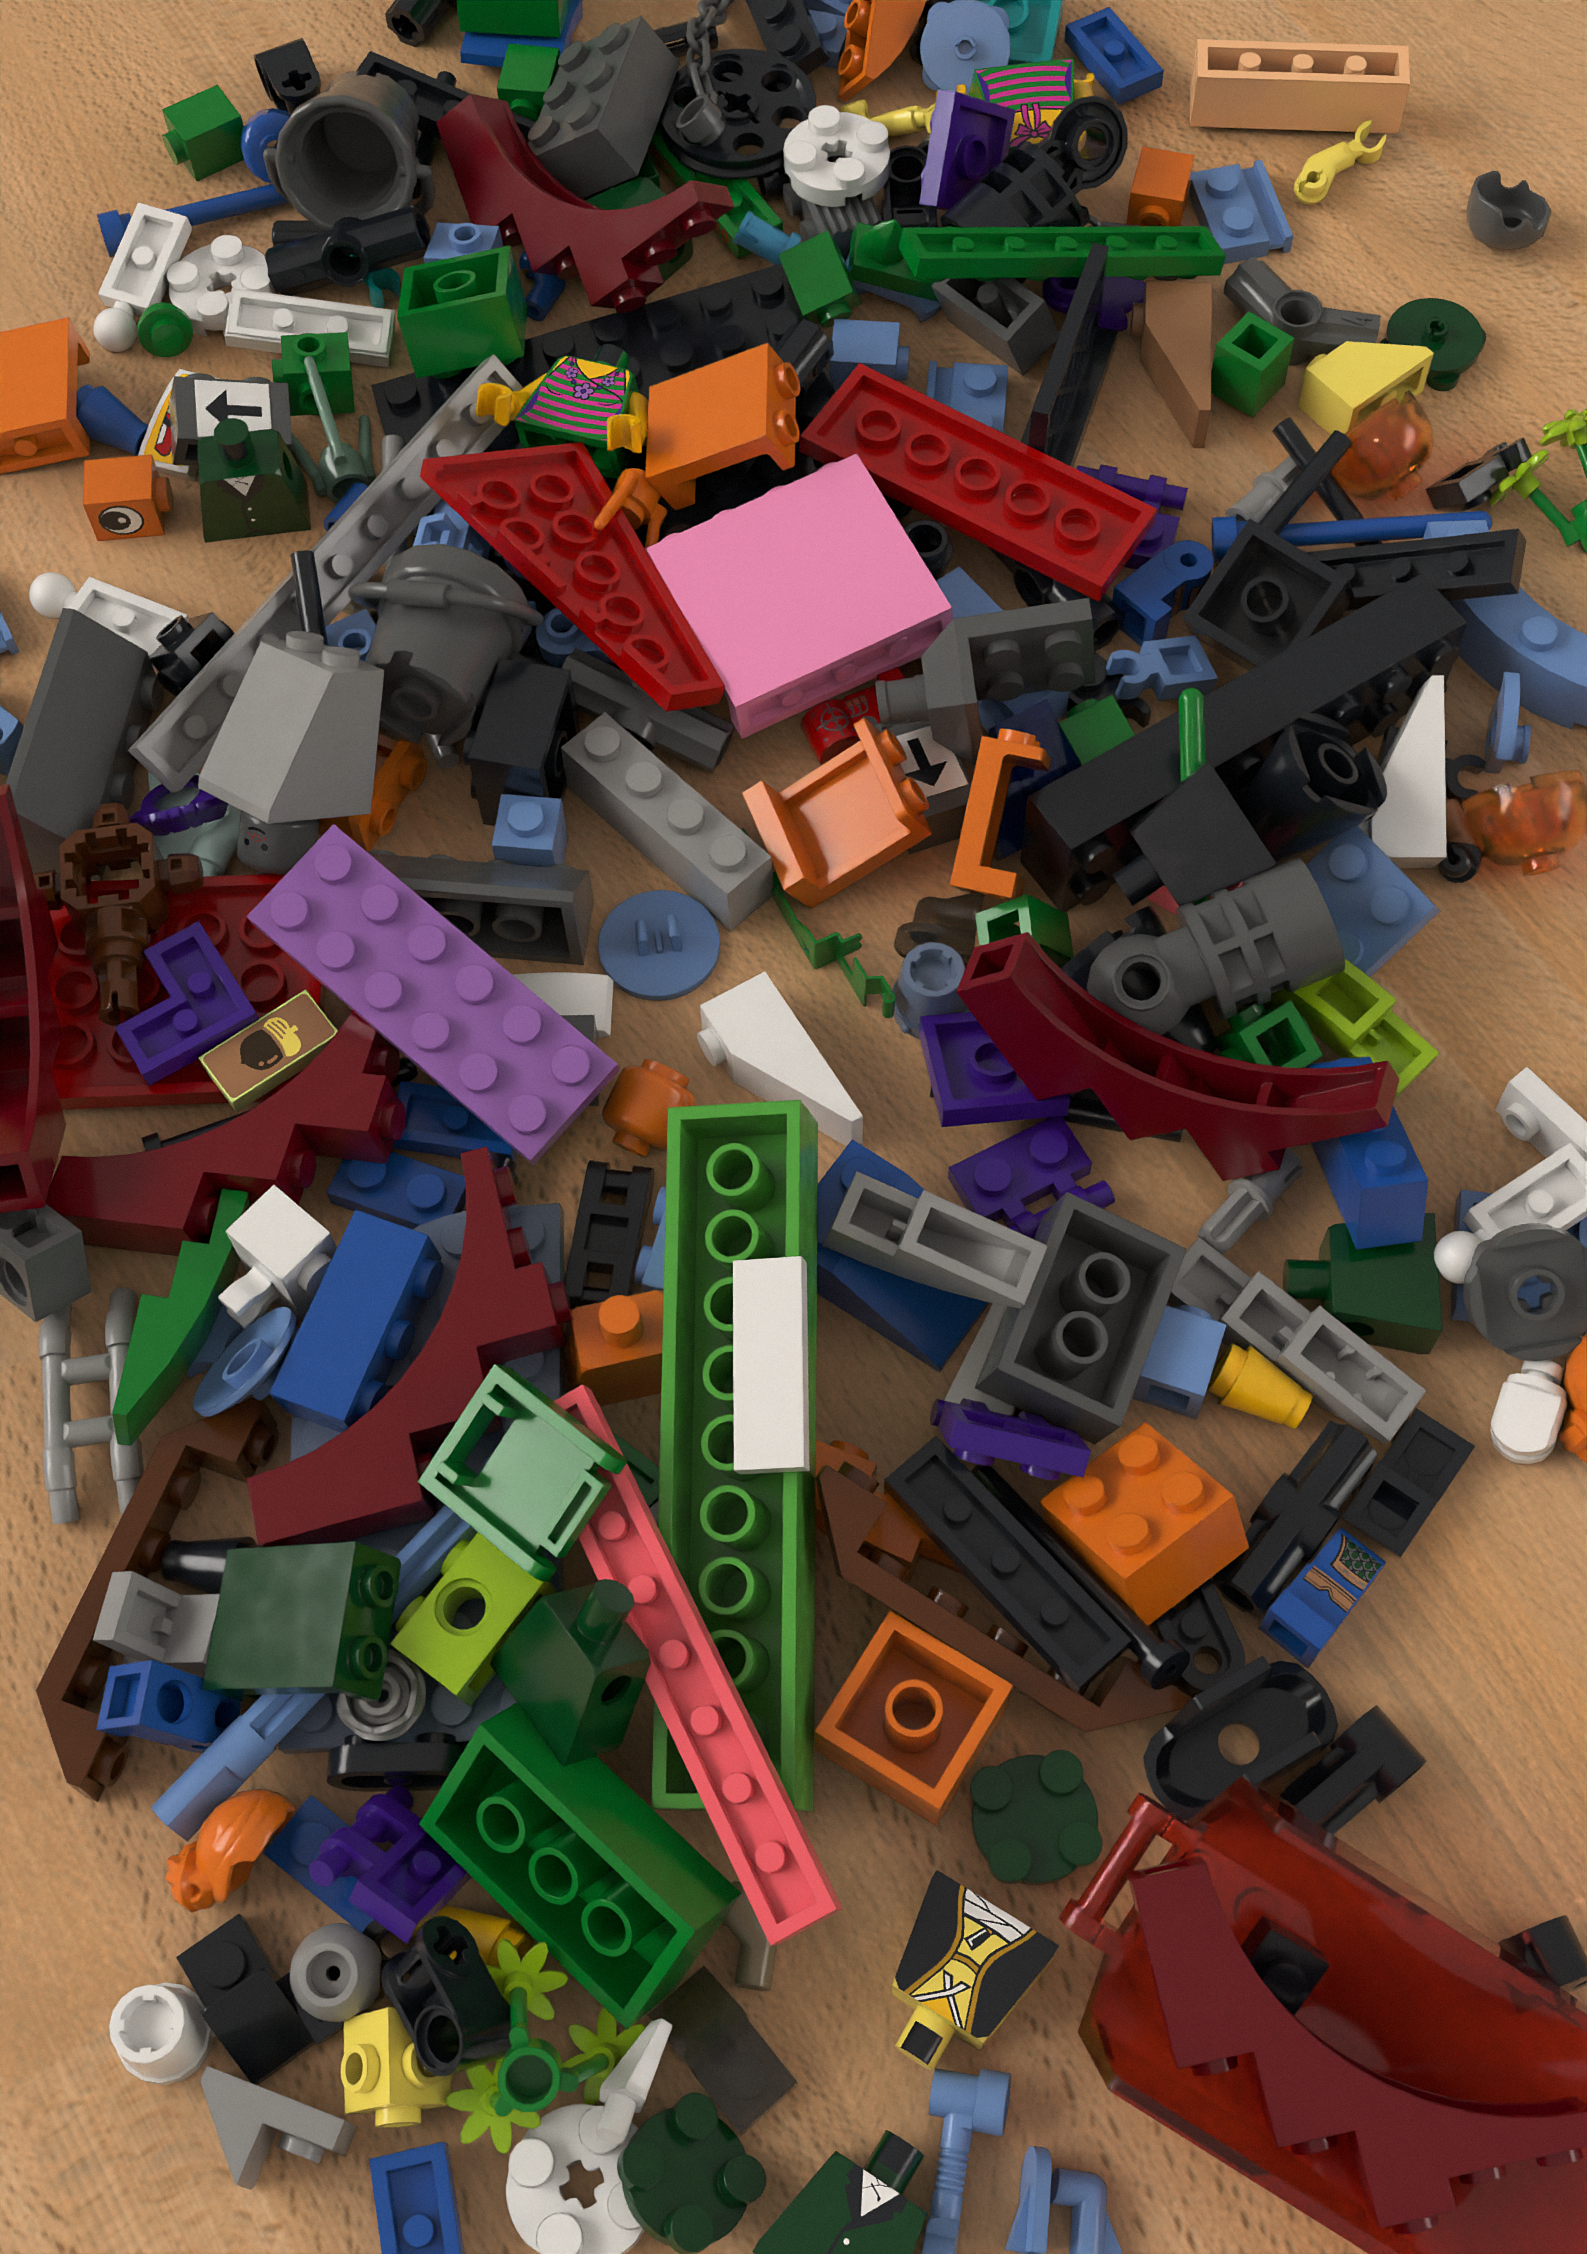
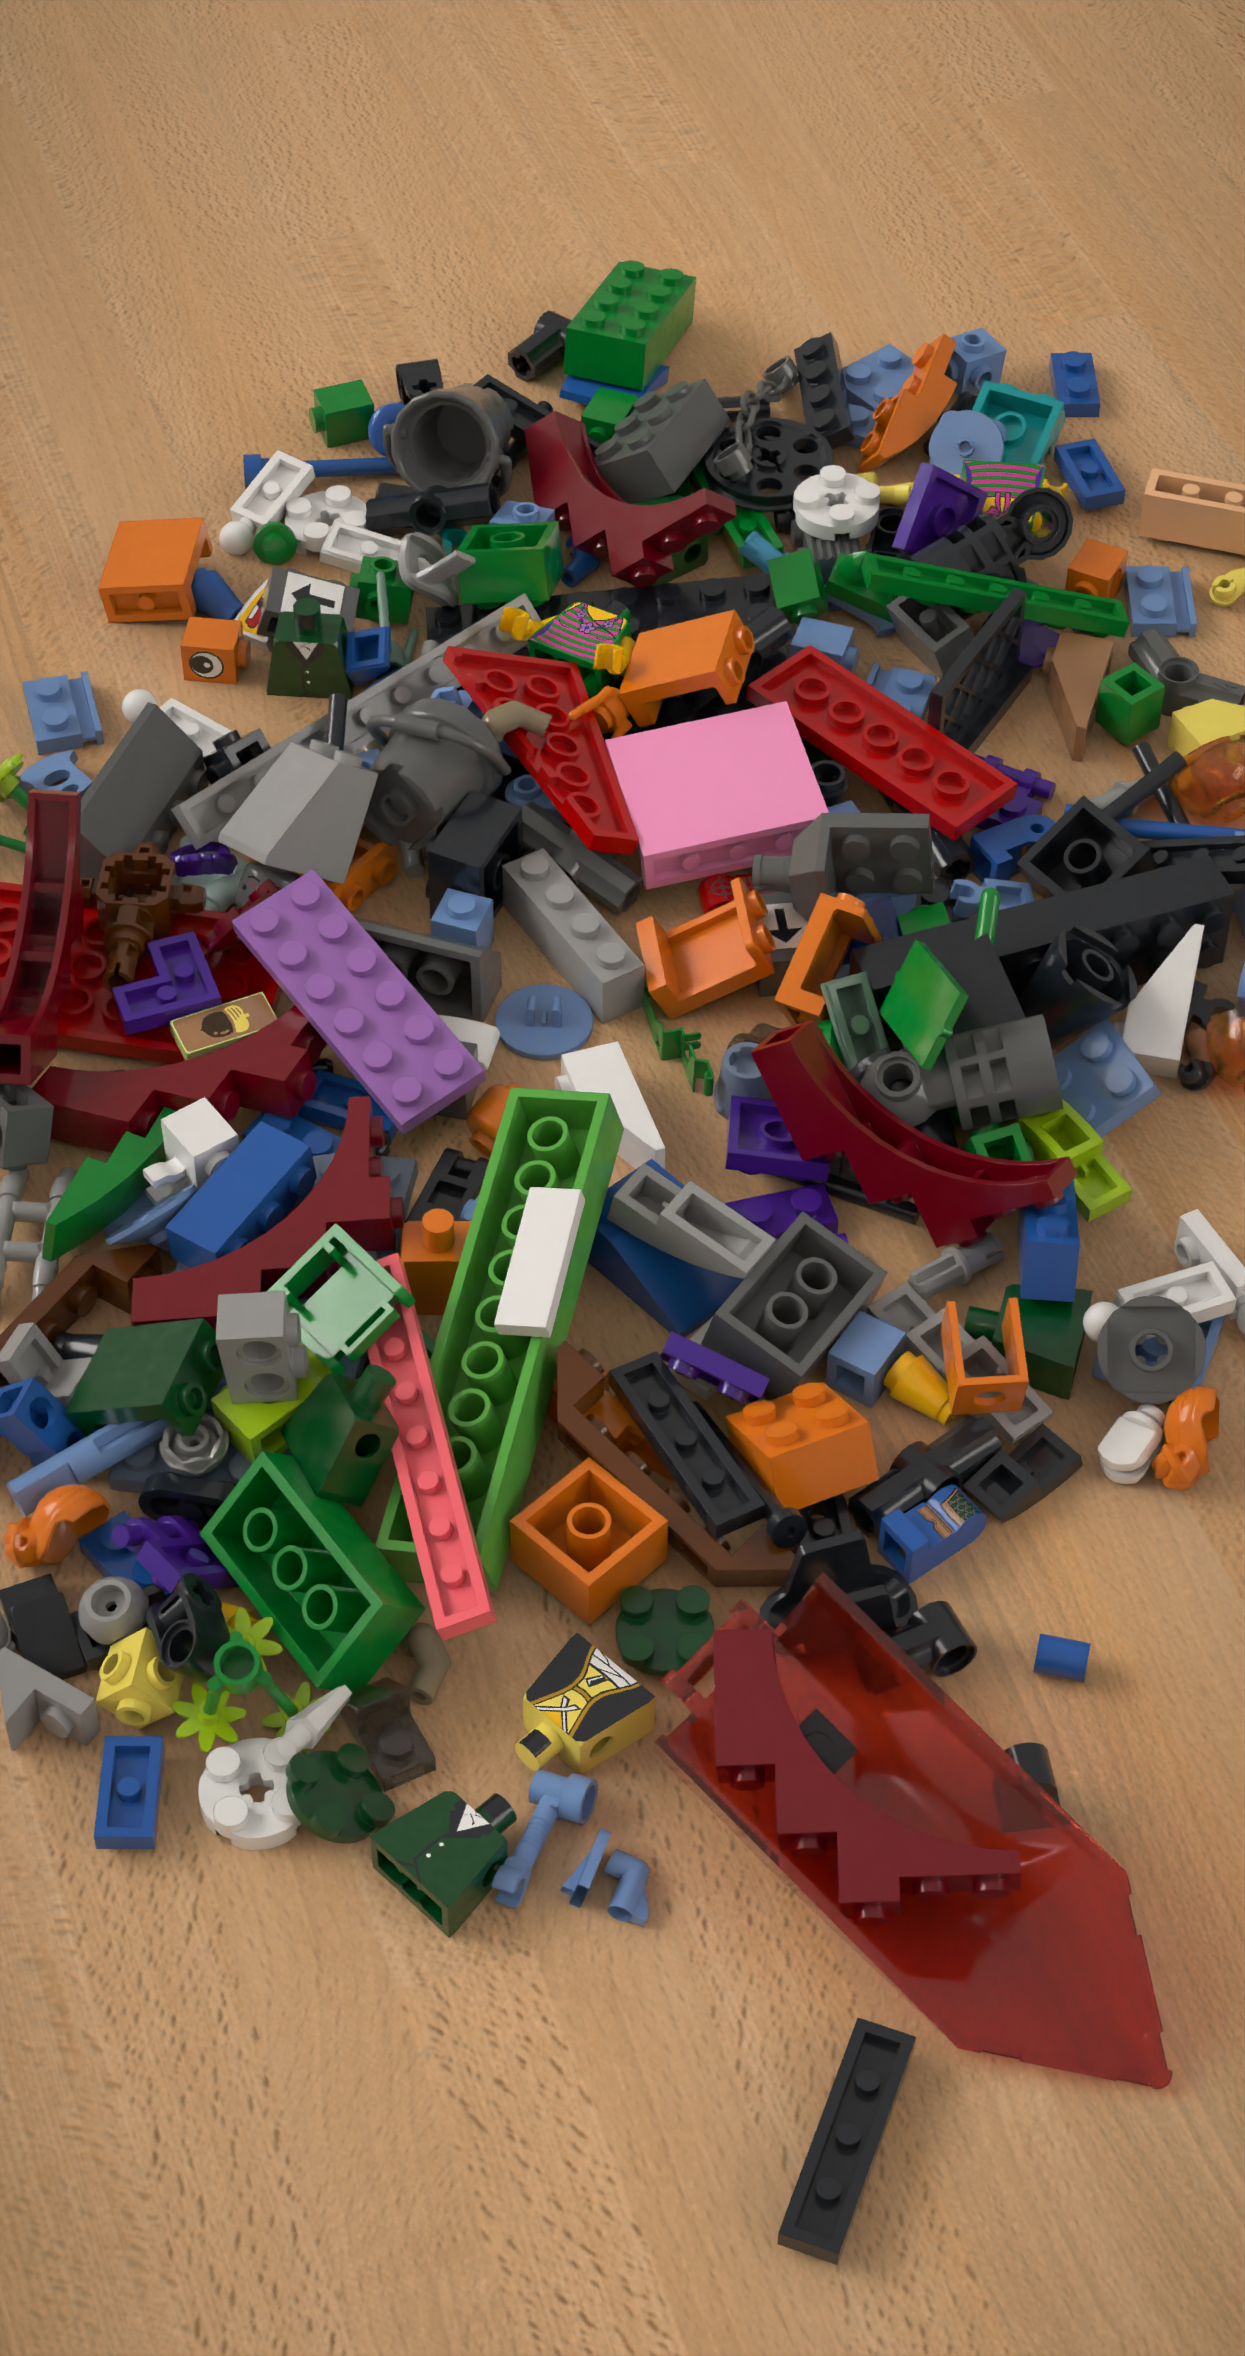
camera: 10 degrees right, 15 degrees down
(263, 877) = (223, 935): none -> dark red dish
(318, 471) = (367, 654): none -> blue slope
(380, 356) = (437, 580): none -> light grey piece
(442, 1582) = (260, 1347): none -> light grey brick
(532, 544) = (515, 715): none -> dark tan arm
(1056, 893) = (854, 1018): none -> sand green slope
(1151, 875) = (923, 1004): none -> green piece
(1376, 1343) = (964, 1390): none -> orange piece
(1528, 1744) = (1061, 1657): none -> blue hinge

